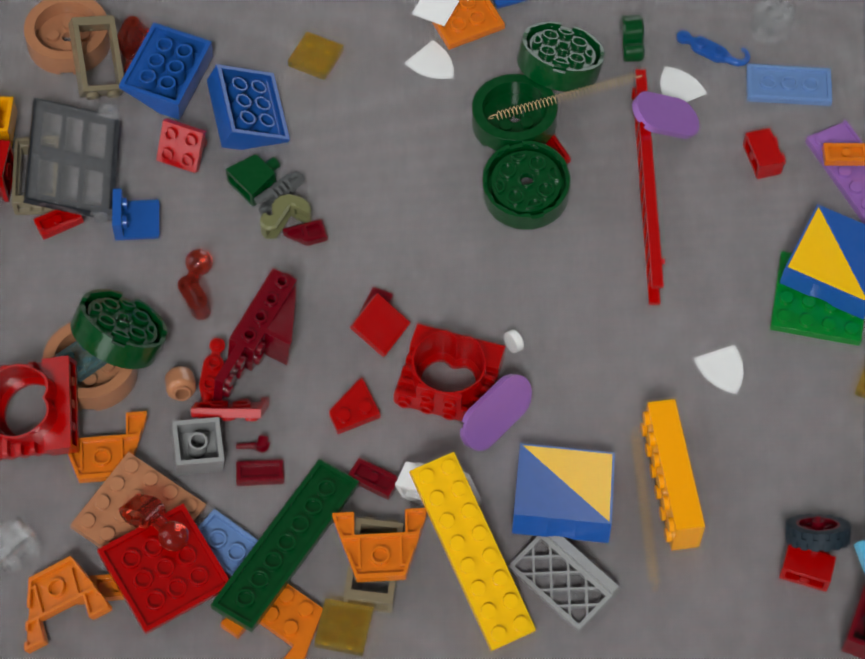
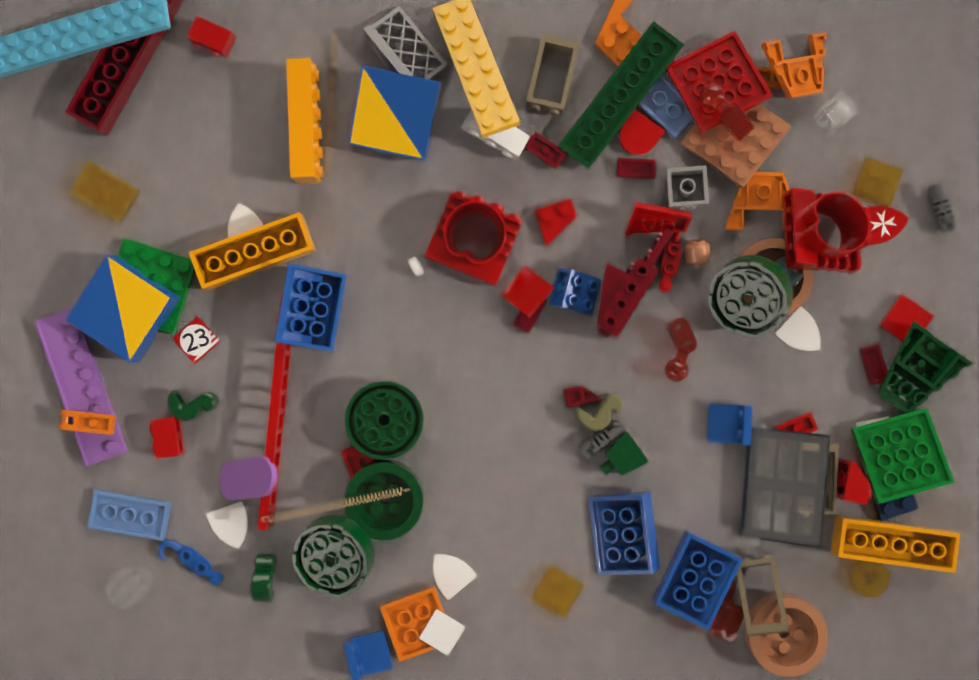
camera: 175 degrees left, 30 degrees up
(49, 317) = (800, 331): none -> white sticker
(181, 145) = (687, 493): red plate -> none
(256, 508) = (639, 134): none -> red tile
(261, 445) = (634, 191): dark red hand -> none
(324, 329) = (575, 291): none -> blue bracket
(344, 627) = (581, 24): clear yellow plate -> none
(381, 554) = (548, 69): orange wing -> none
(496, 412) = (440, 195): medium lavender tile -> none
(626, 278) = (310, 307): none -> blue slope
(705, 335) = (252, 251): none -> light orange brick
(743, 179) = (194, 409): none -> dark green animal
(754, 251) = (196, 340): none -> sticker
(818, 532) = (192, 68): black wheel -> none

